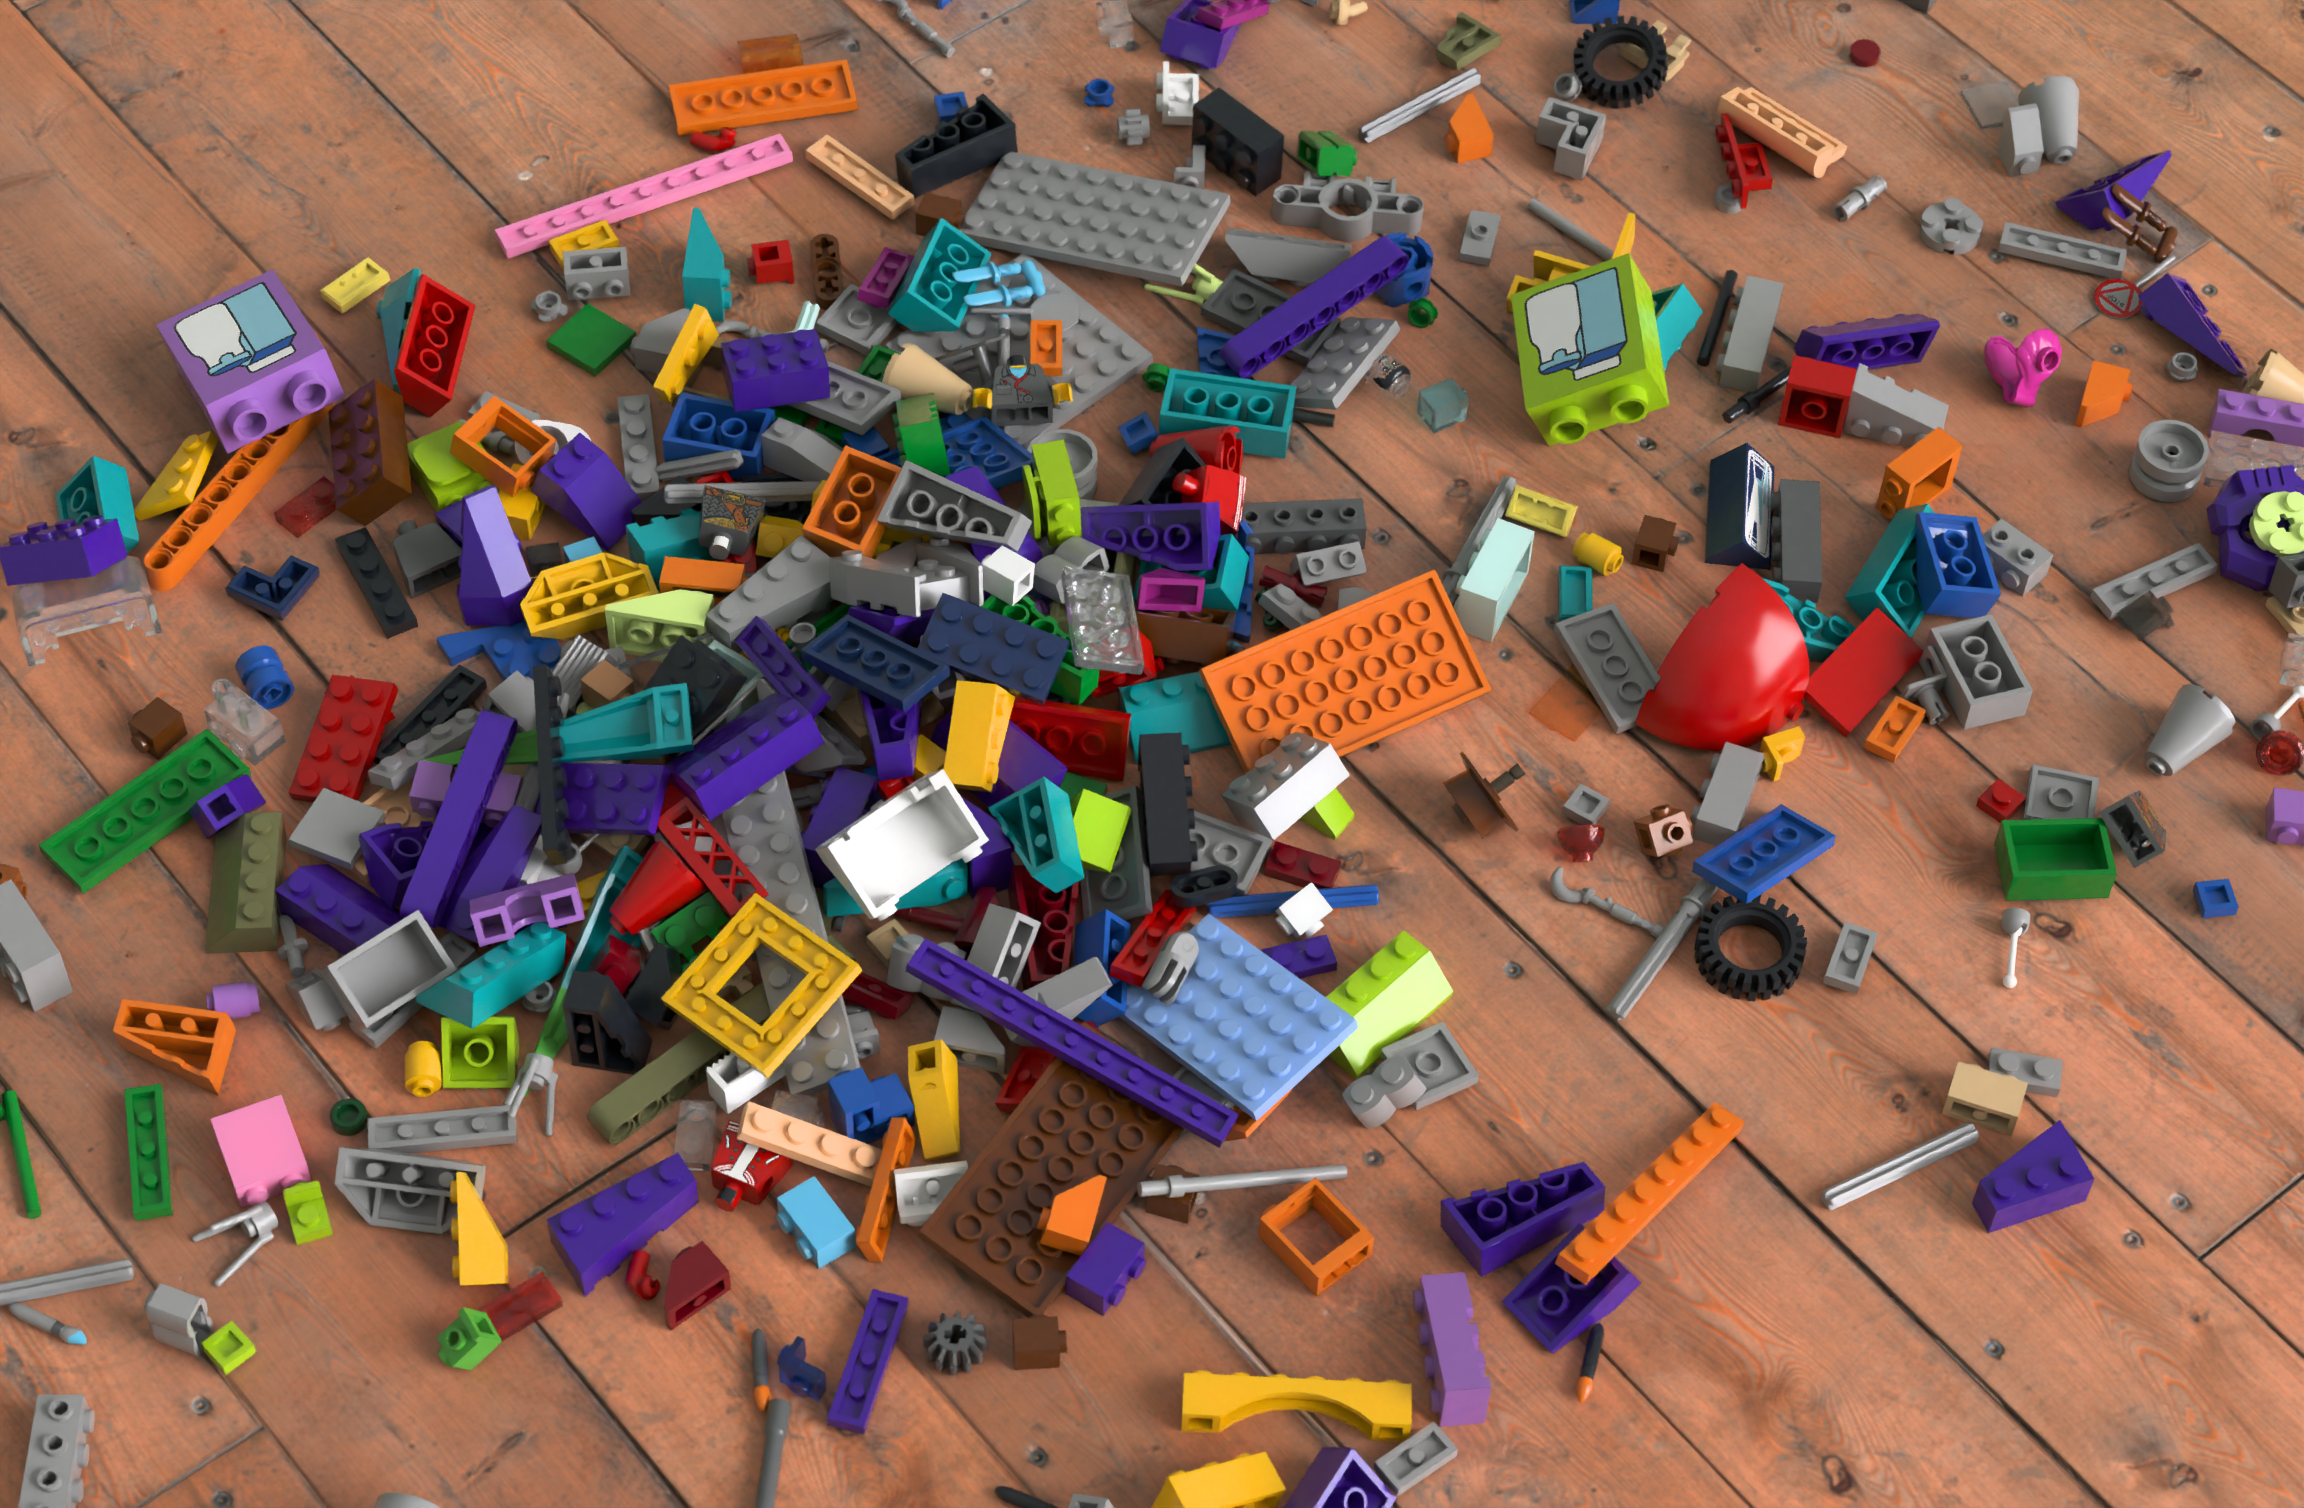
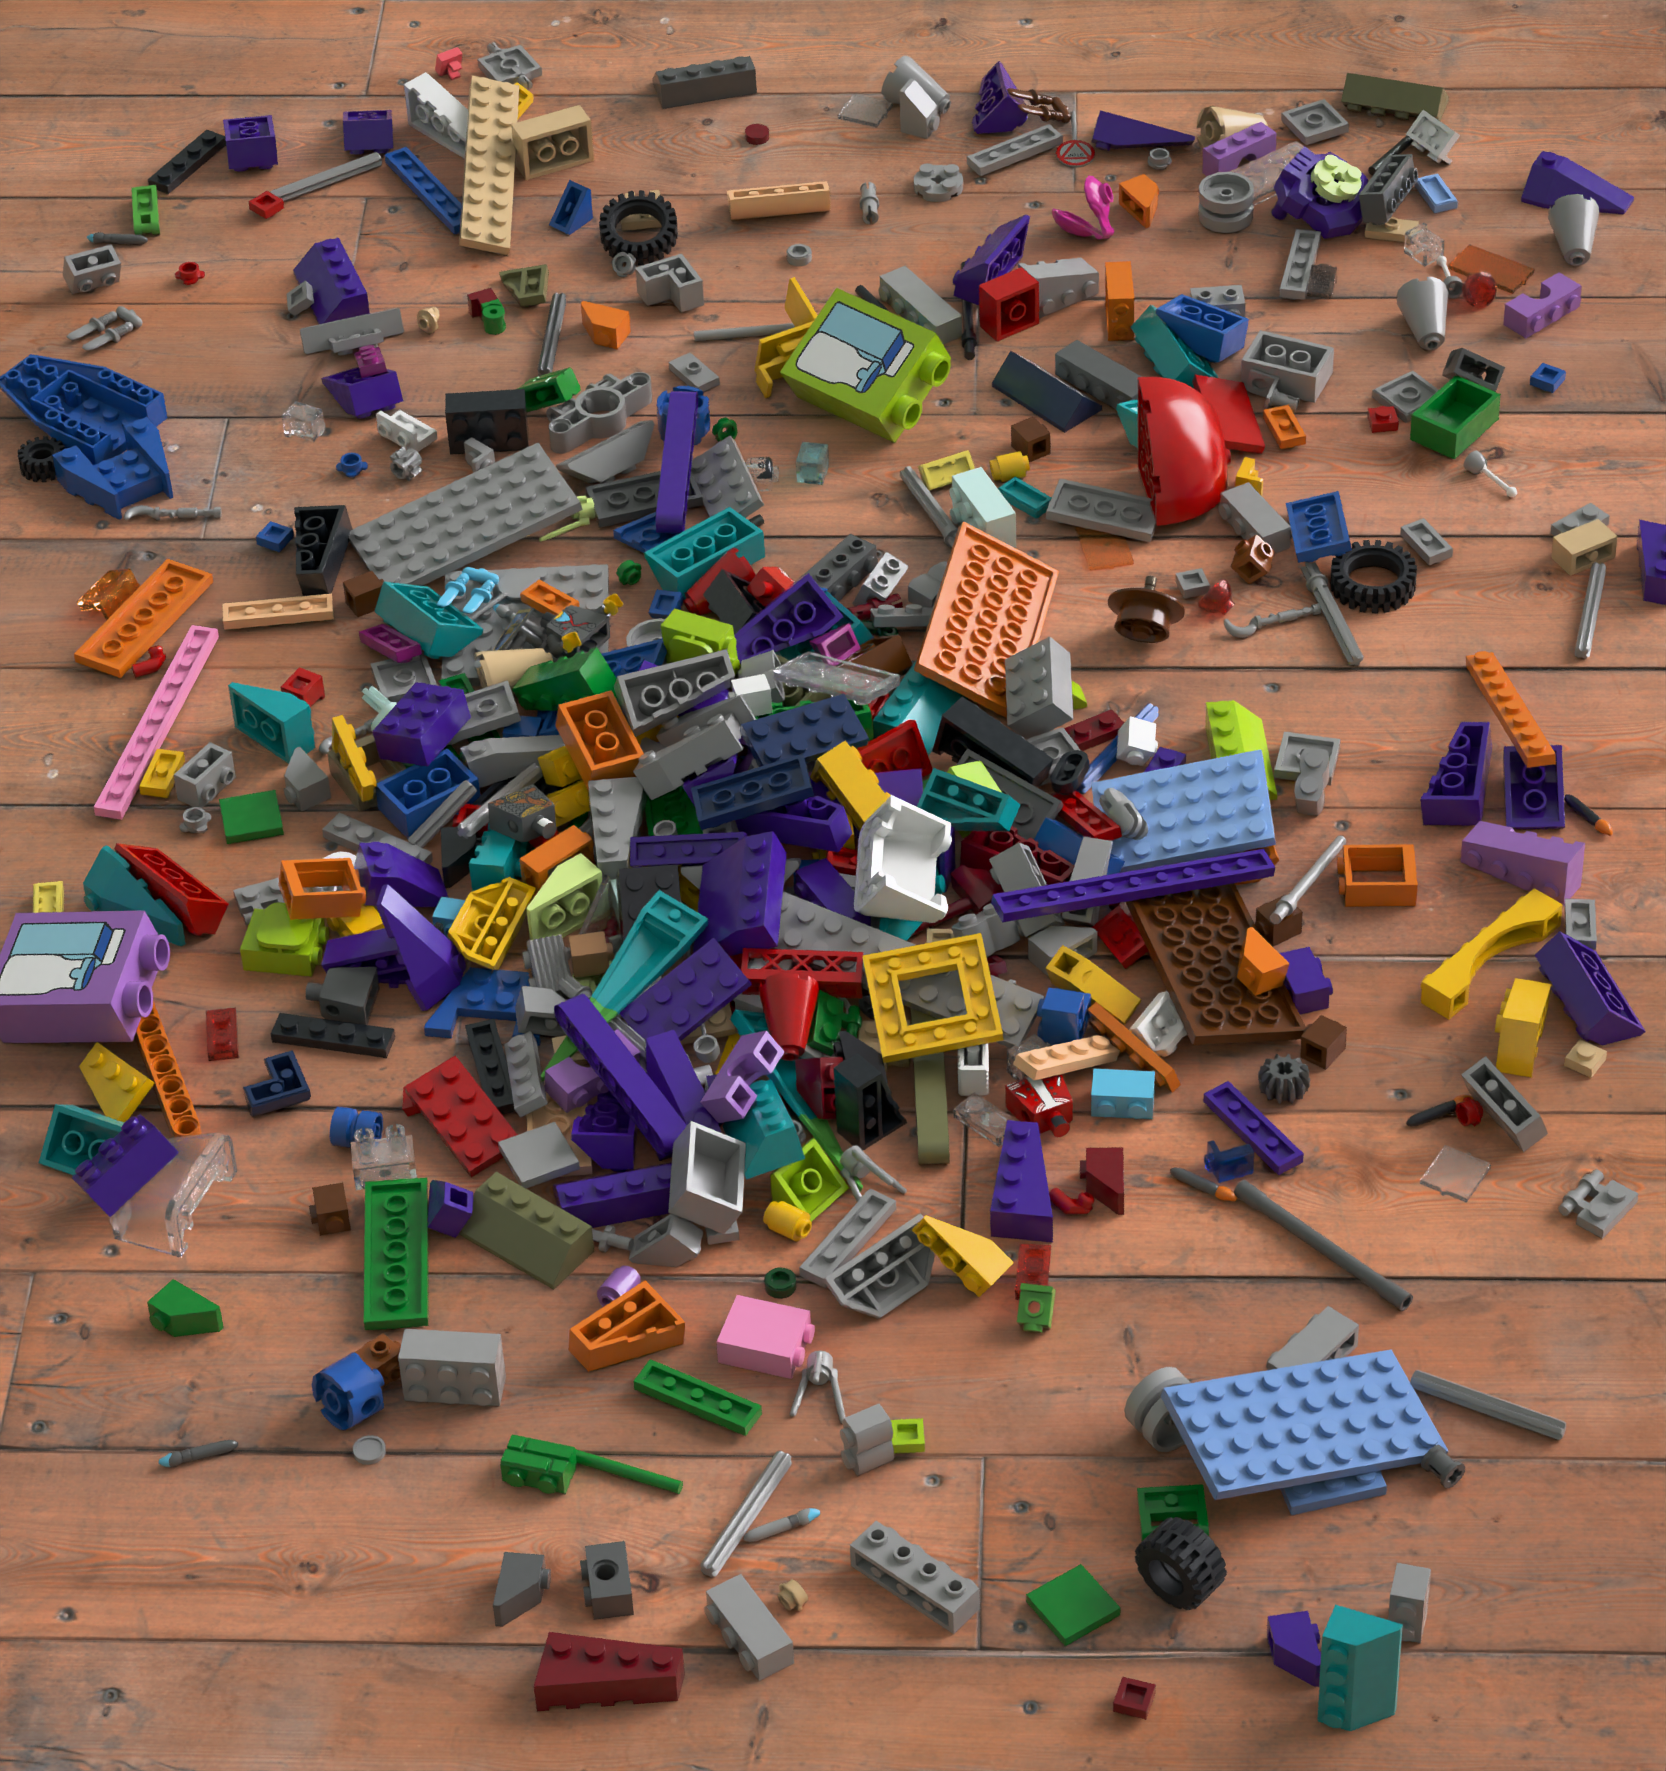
camera: 45 degrees left, 10 degrees down
(307, 1212) = (839, 1342): lime bracket -> none
(369, 452) = (227, 967): reddish brown brick -> none
(551, 774) = (638, 1001): black plate -> none
(831, 261) = (327, 664): reddish brown beam -> none
(1400, 42) = (489, 309): none -> leg
(1744, 163) = (781, 229): red bracket -> none

